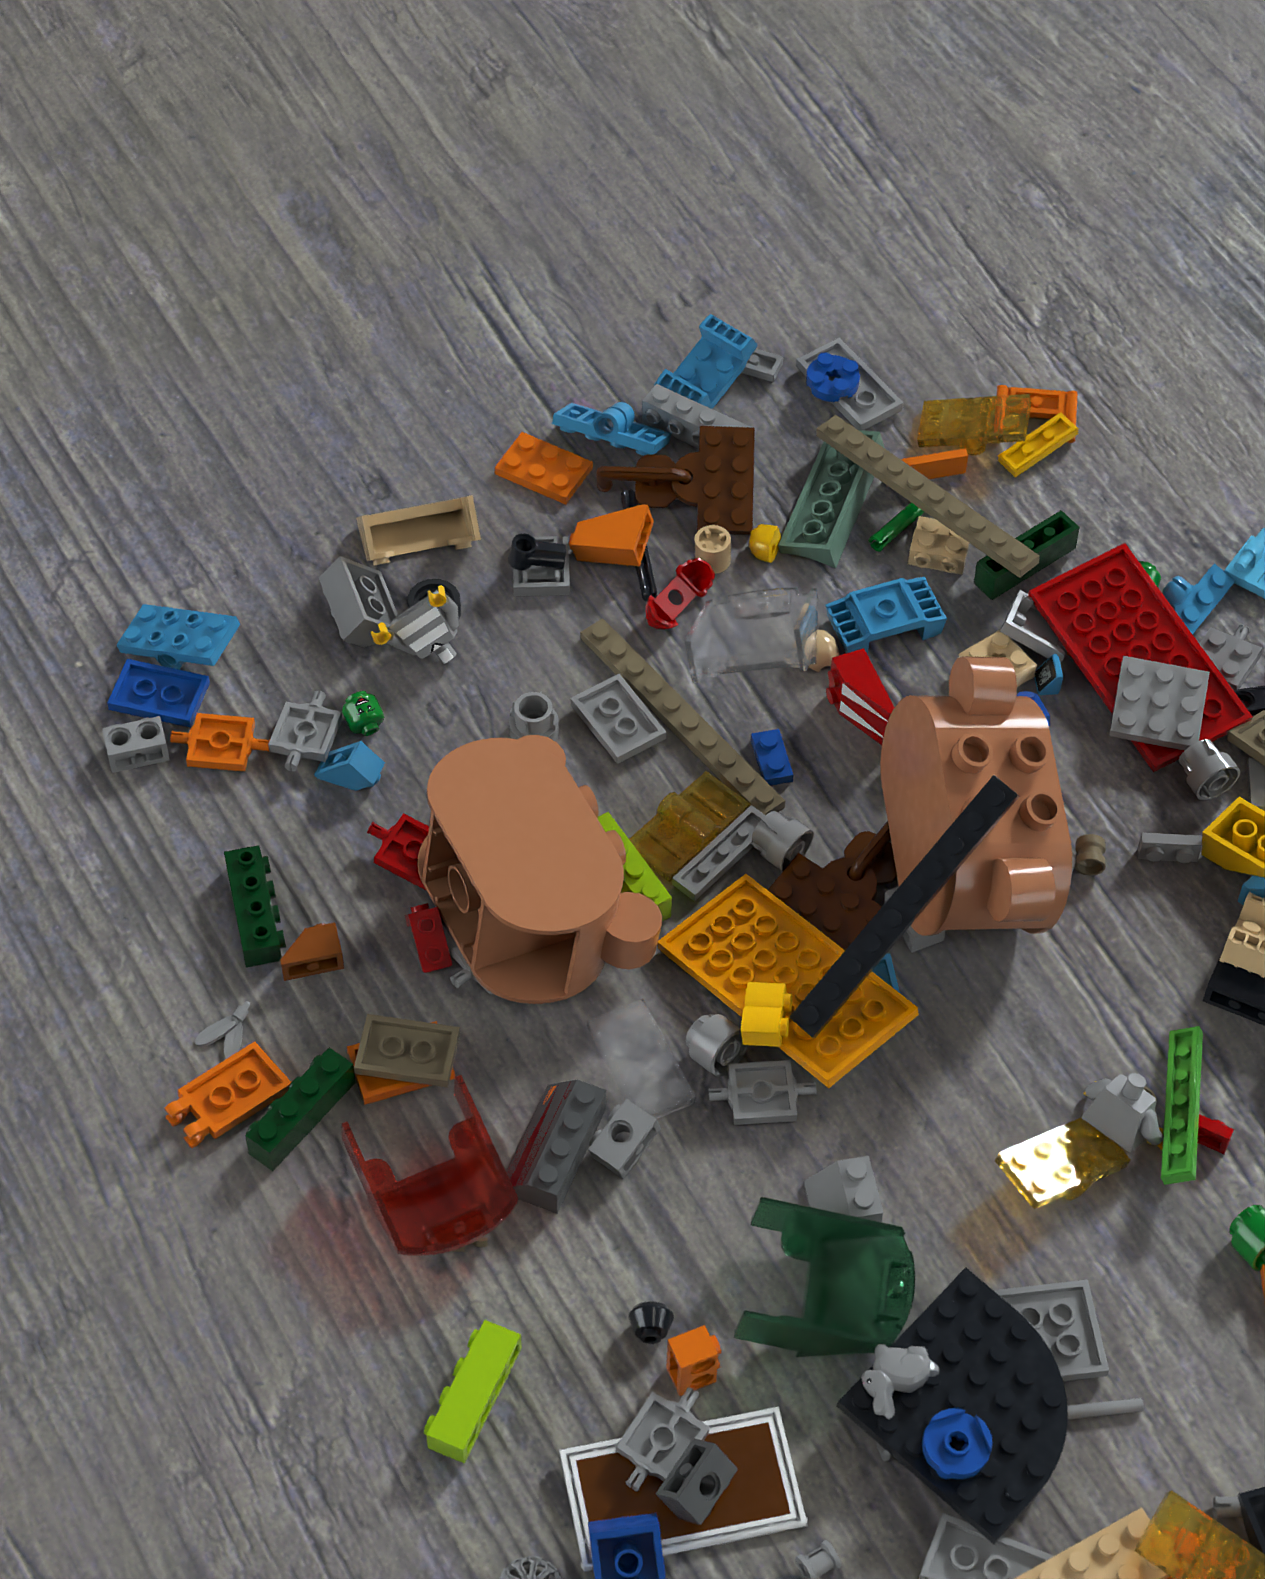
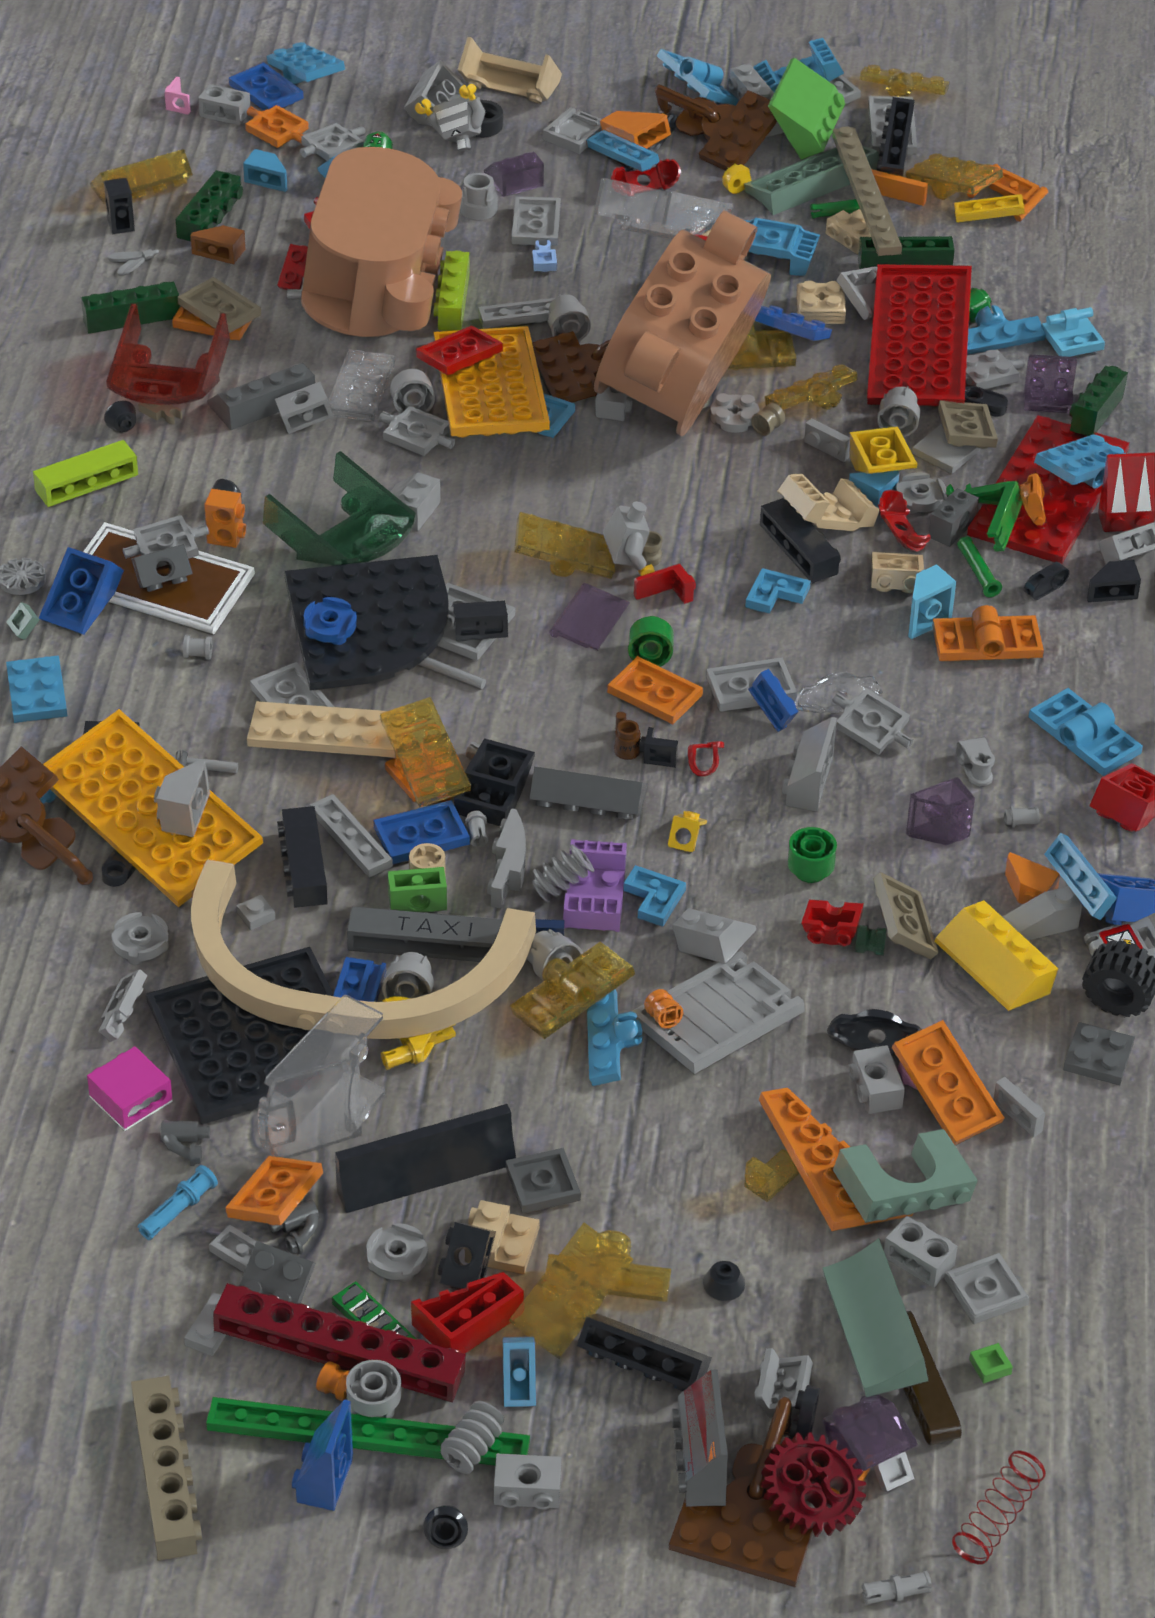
camera: 35 degrees right, 10 degrees down
(68, 767) = (172, 94): none -> bright pink bracket
(138, 907) = (148, 174): none -> clear yellow slope
(161, 969) = (119, 205): none -> black brick
(228, 1094) = (92, 280): orange tile -> none
(270, 814) = (265, 170): none -> dark azure slope
(435, 1279) = (120, 416): none -> black cone
(527, 552) = (568, 114): black piece -> none
(537, 662) = (517, 174): none -> clear purple slope
(543, 468) = (632, 83): orange plate -> none
(627, 571) = (623, 150): none -> dark azure plate
(672, 767) = (544, 258): none -> light blue plate
(681, 718) = (579, 238): dark tan plate -> none
(687, 824) = (518, 285): clear yellow plate -> none
(714, 547) = (695, 165): tan piece -> none
(725, 958) = (459, 350): none -> red plate
(765, 1014) = (447, 379): yellow brick -> none
(772, 757) = (615, 284): blue plate -> none
(773, 416) = (806, 108): none -> bright green slope
(810, 322) = (903, 84): none -> clear yellow plate
(832, 365) = (873, 111): blue plate -> none
(892, 408) = (896, 136): none -> black brick
(898, 1371) = (328, 566): light grey animal -> none
(904, 906) = (570, 338): black plate -> none
(1049, 676) = (852, 325): slope -> none
(1083, 1326) = (480, 620): none -> black hinge
(1096, 784) = (819, 389): none -> clear yellow plate
(1157, 1237) = (589, 617): none -> clear purple piece
(1159, 703) = (903, 360): light grey plate -> none
(1182, 1105) = (675, 555): bright green tile -> none

